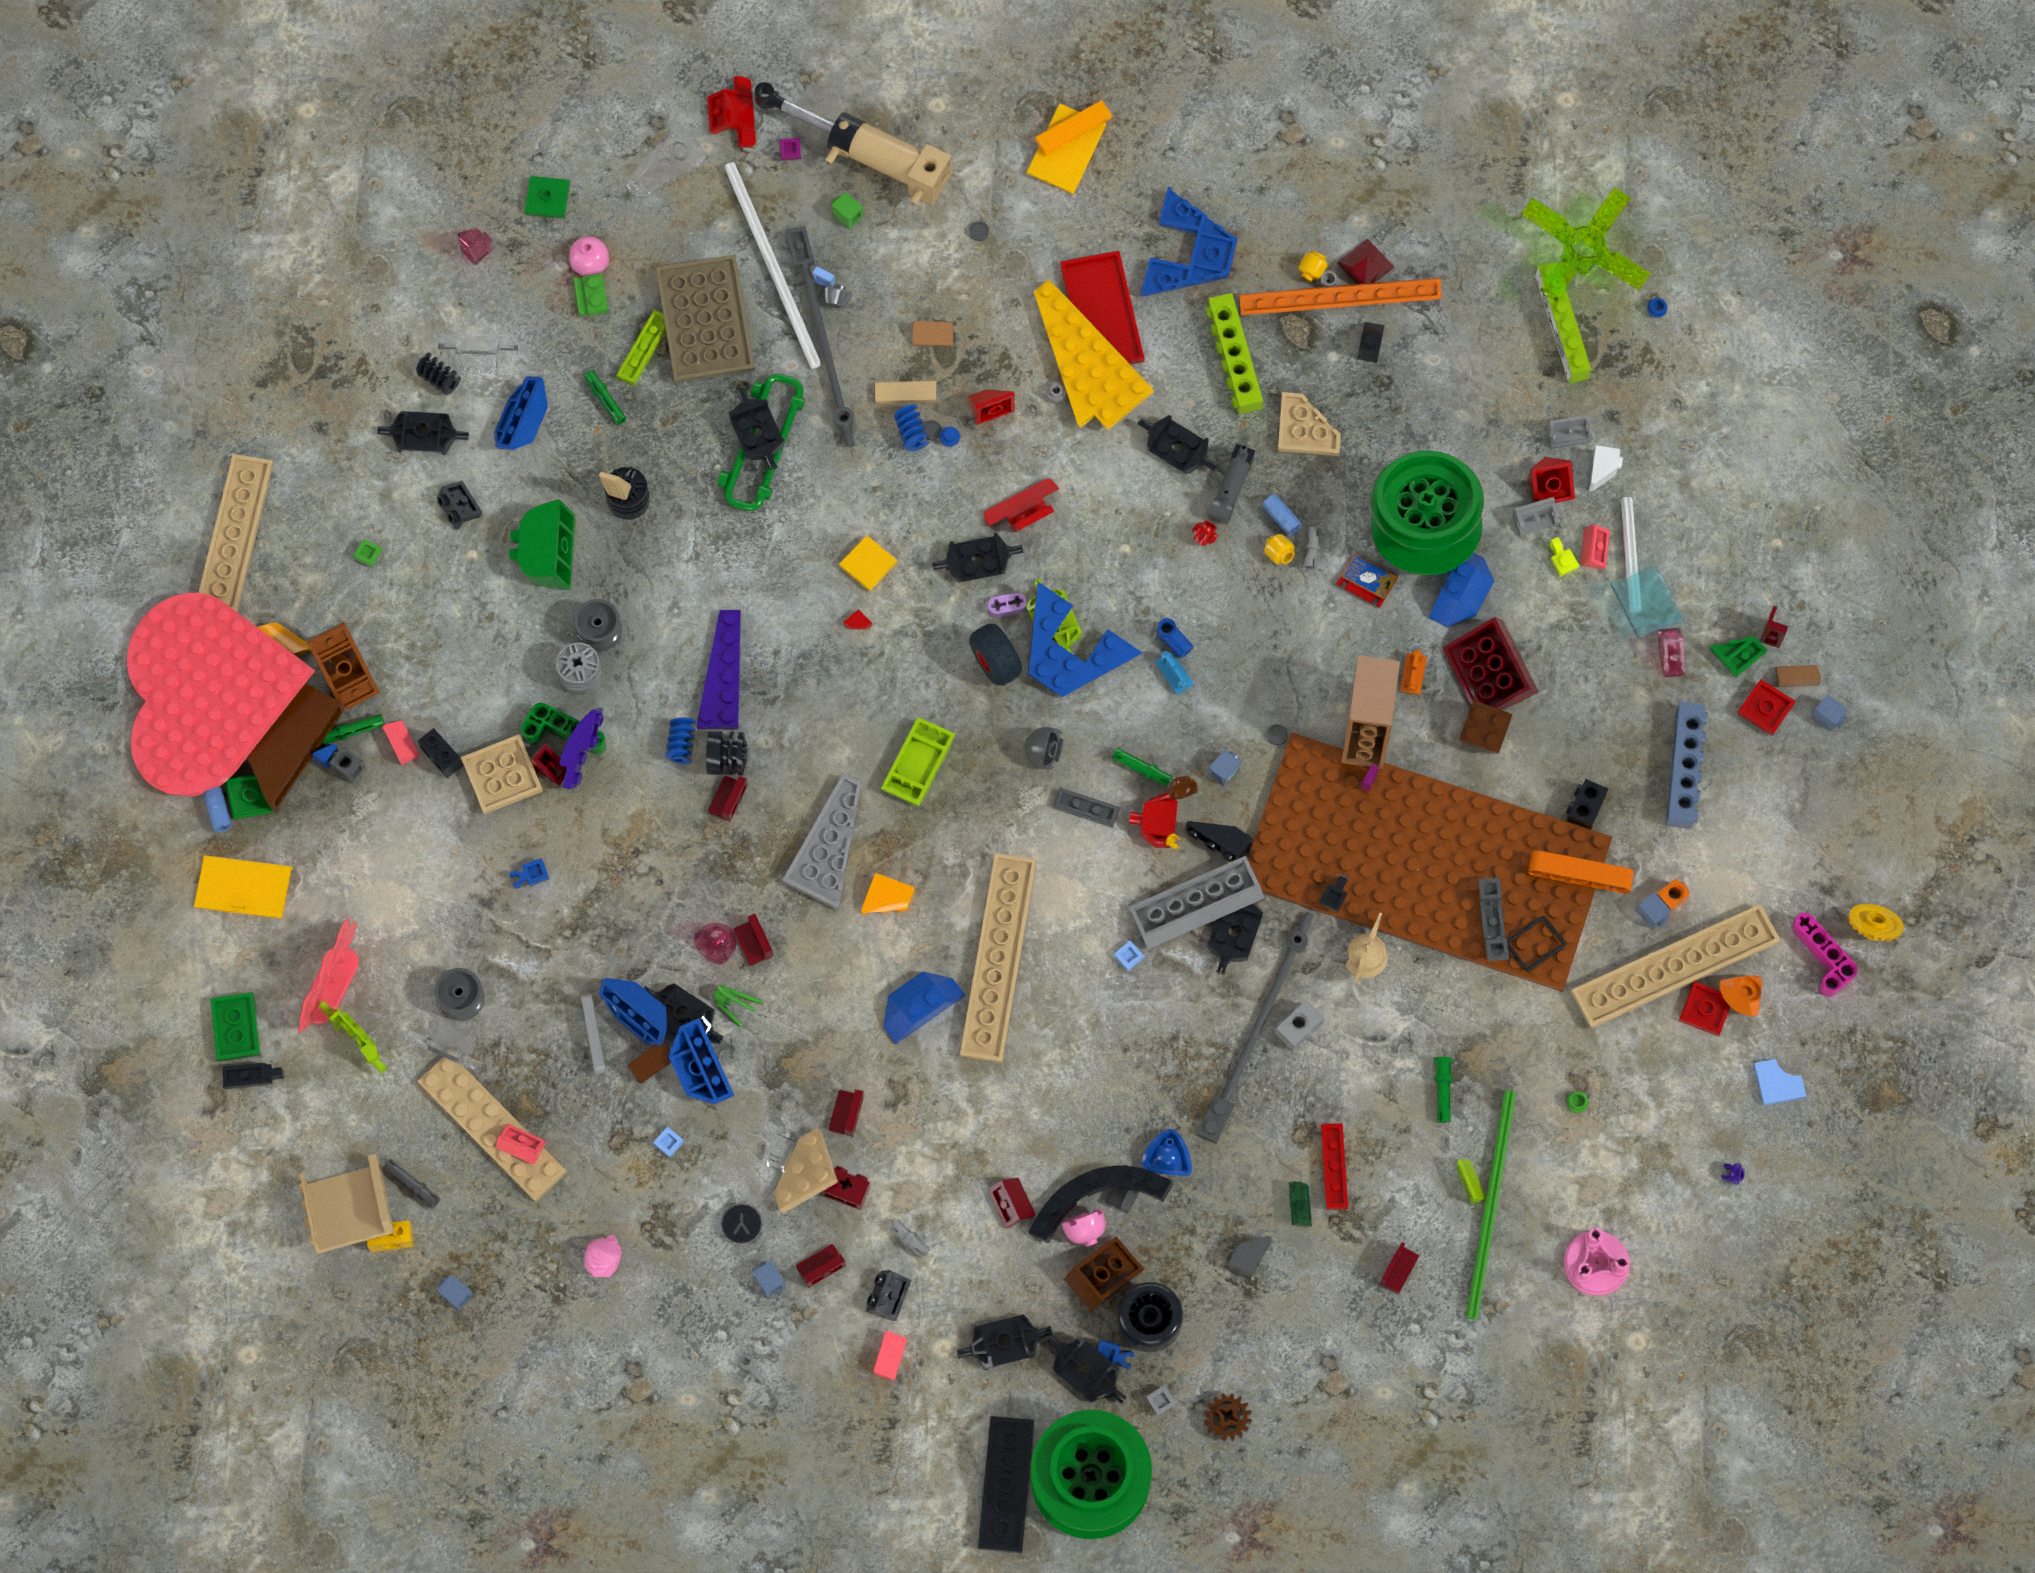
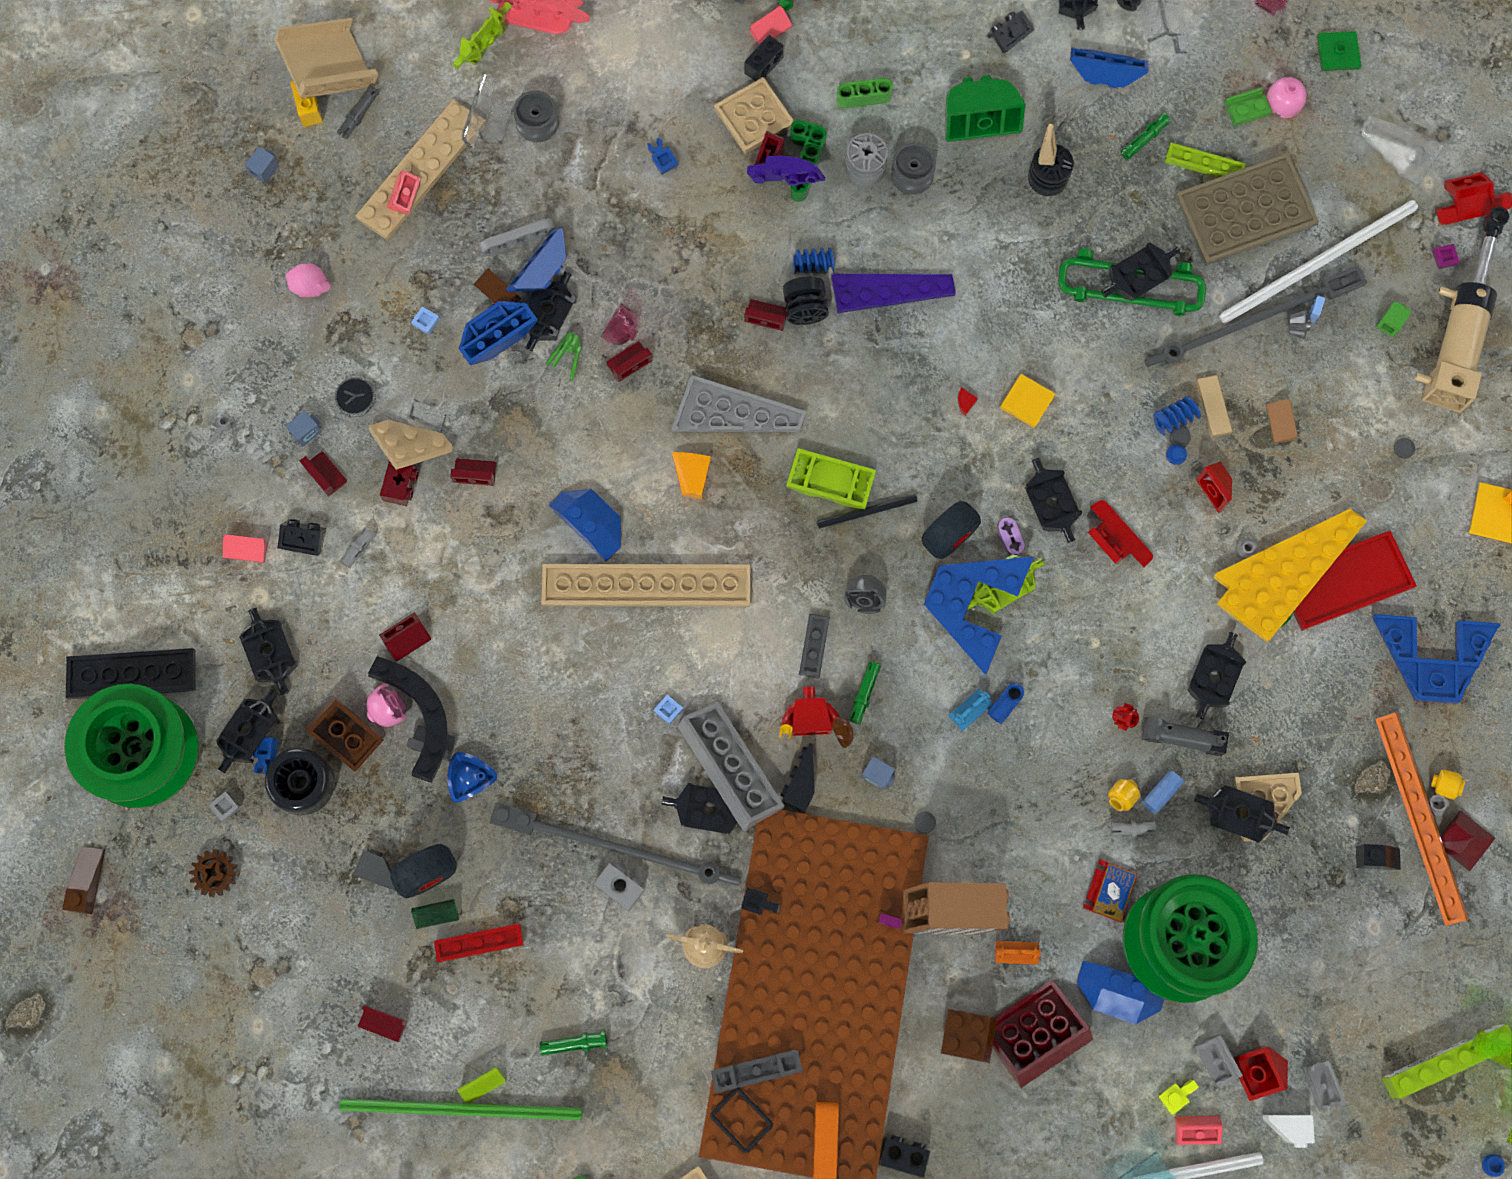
camera: 80 degrees right, 5 degrees up
(499, 650) = (858, 99): none -> bright green beam
(957, 740) = (867, 511): none -> black piece
(1216, 1548) = (84, 881): none -> reddish brown slope
(1225, 306) = (1377, 693): lime brick -> none
(1258, 1204) = (423, 870): none -> black wheel
(1312, 465) = (1253, 827): none -> black plate

